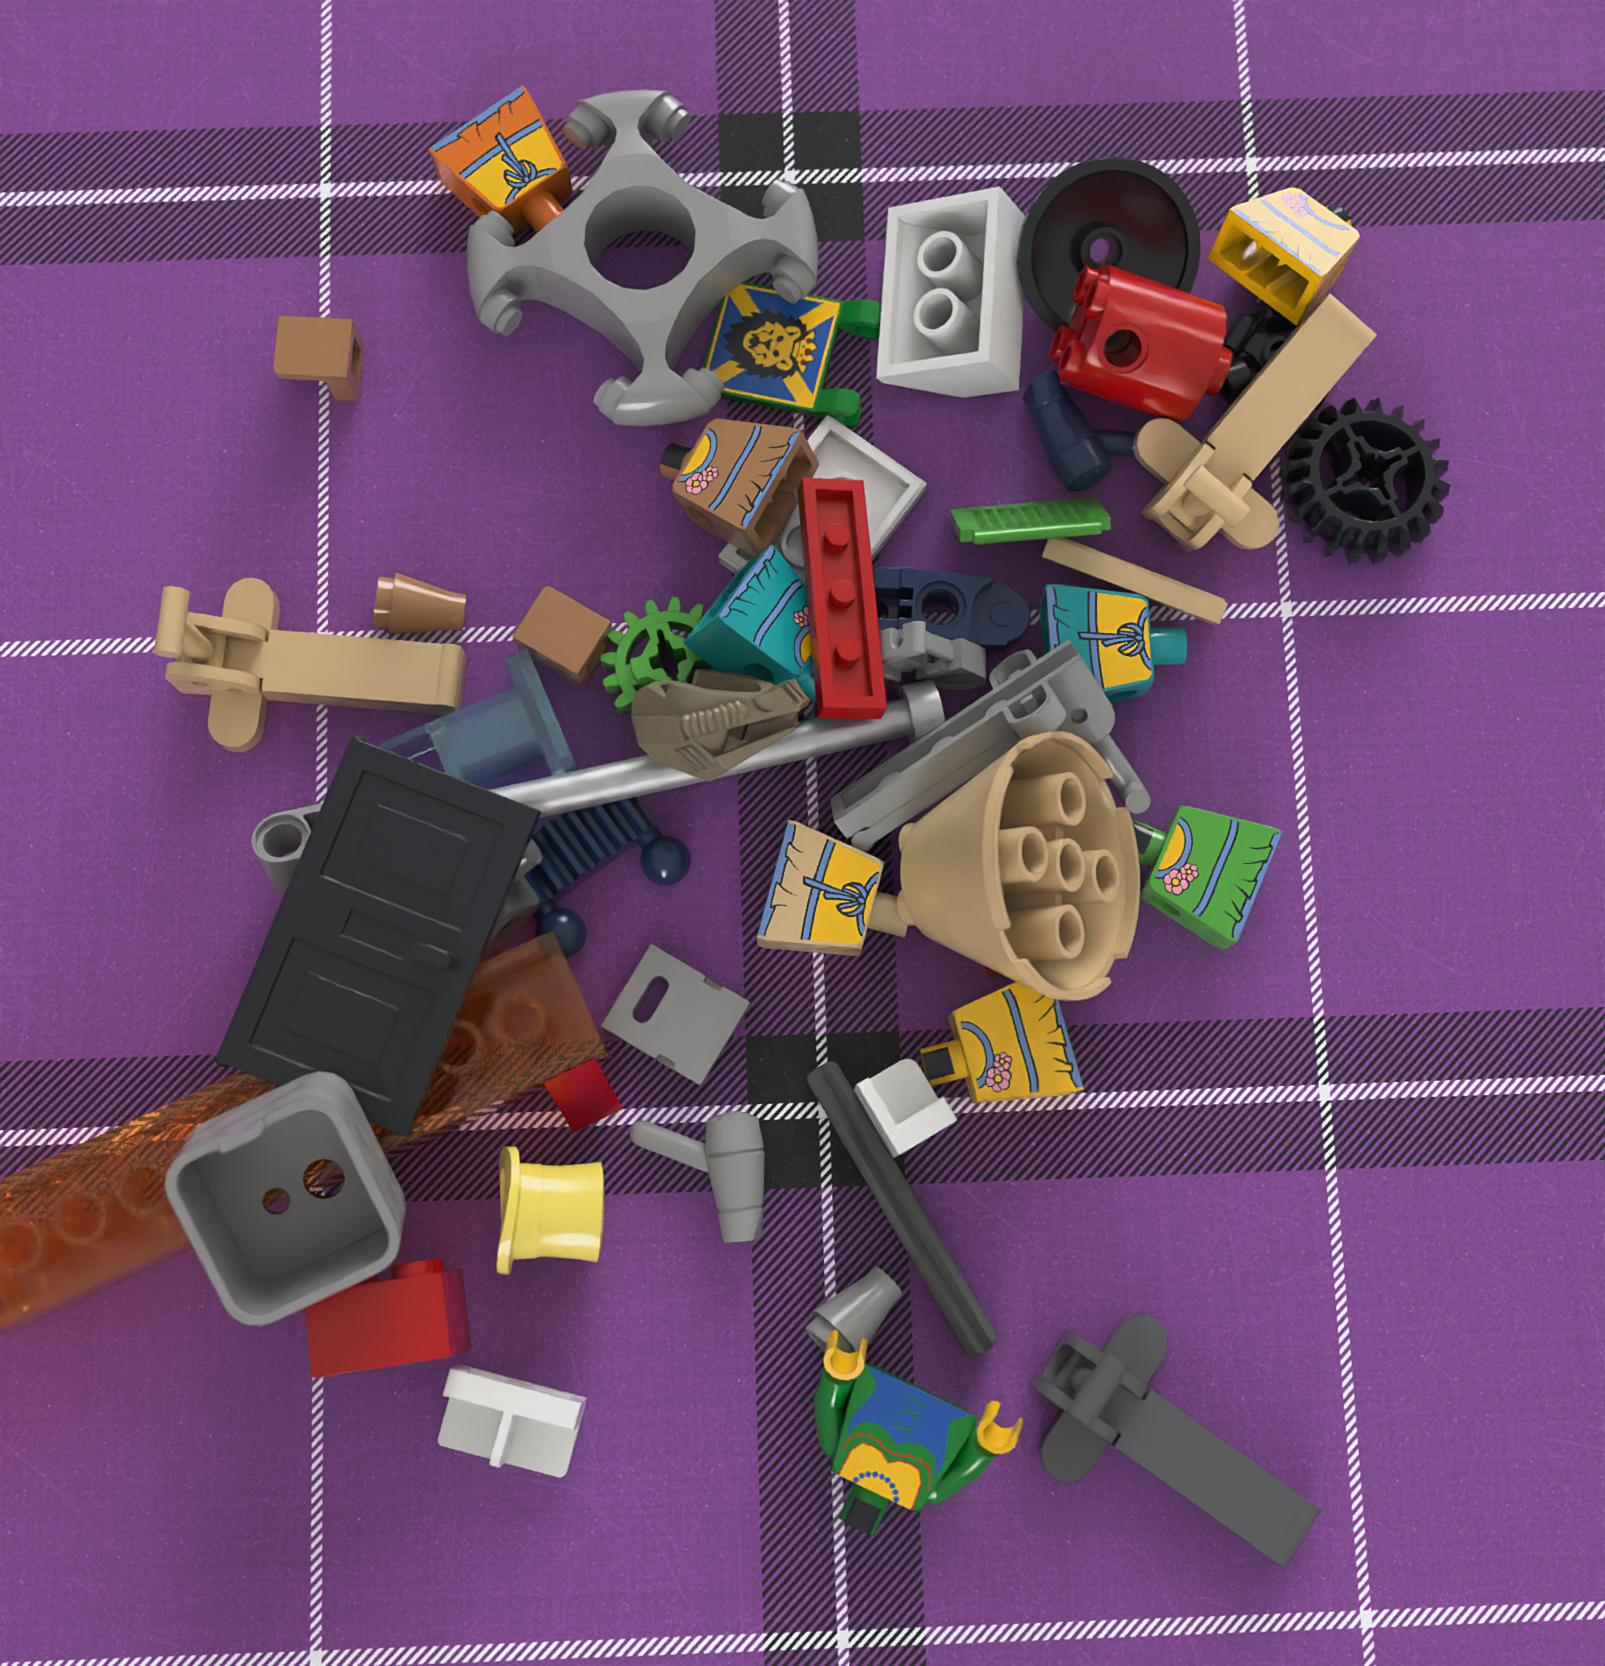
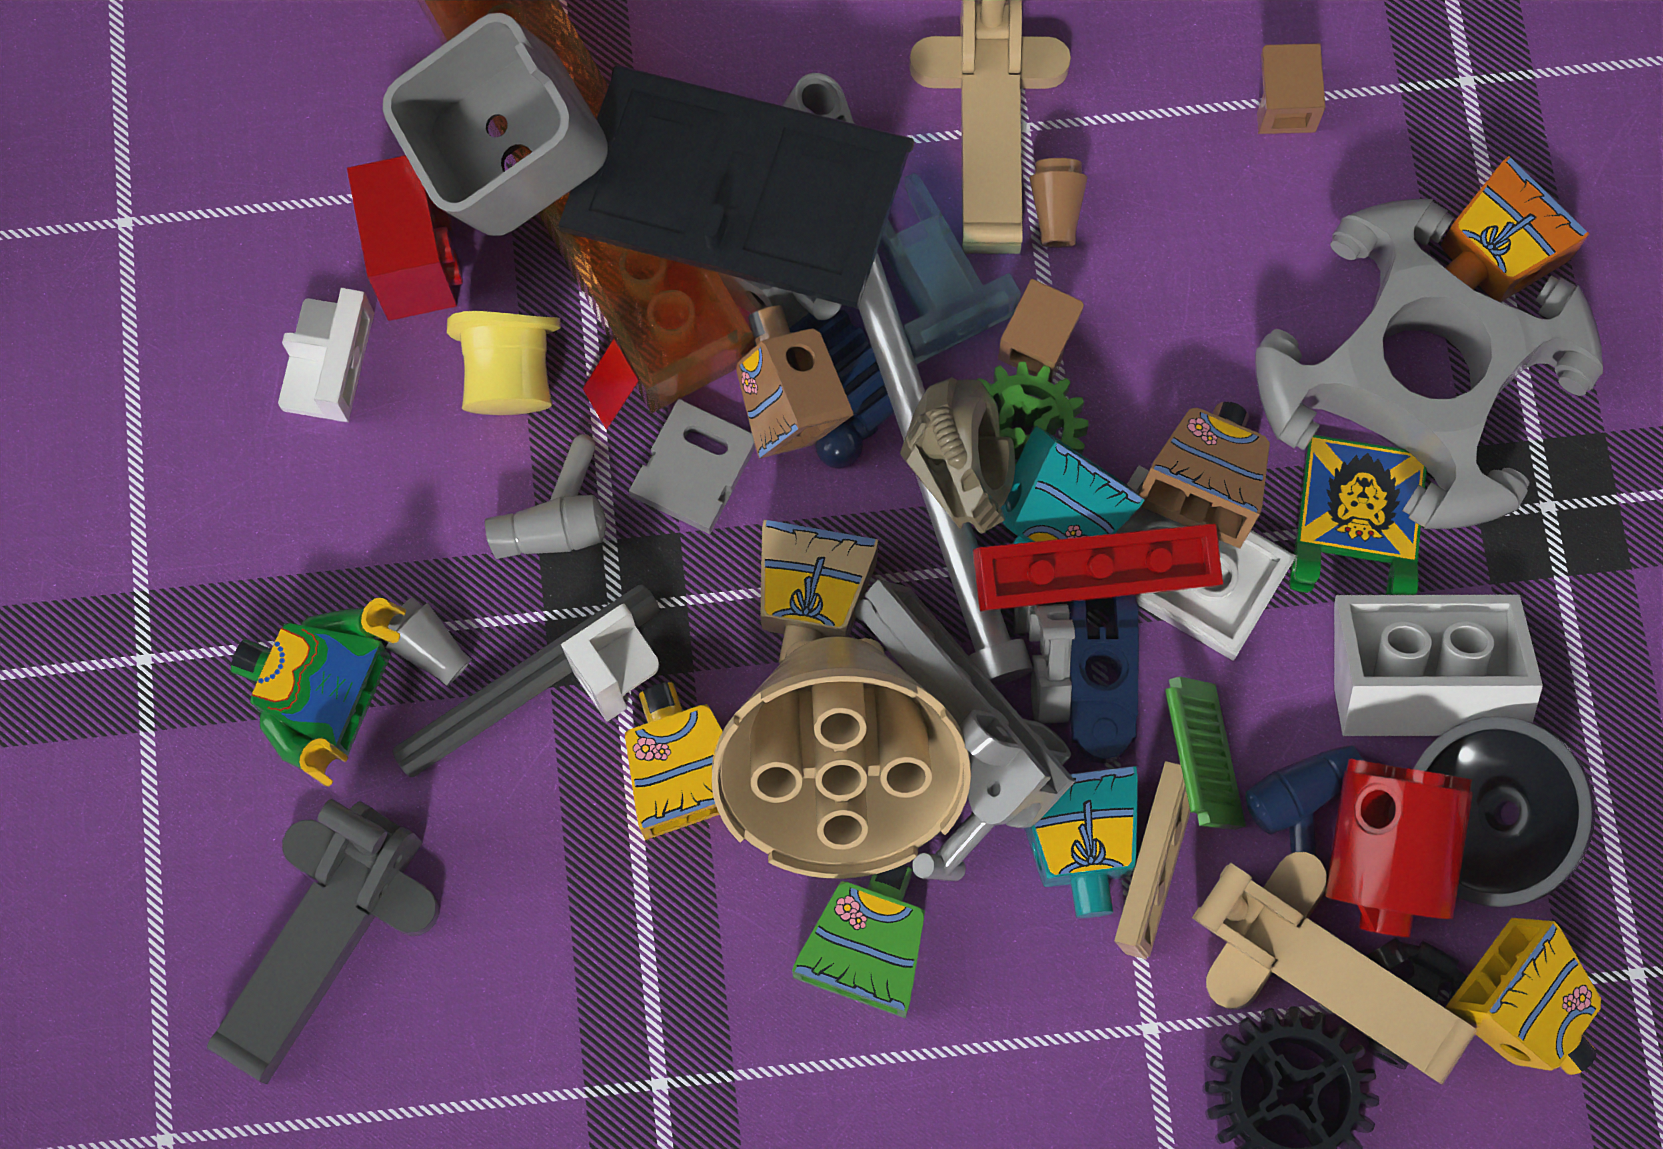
camera: 90 degrees right, 5 degrees down
(612, 897) = (789, 386): none -> medium nougat torso

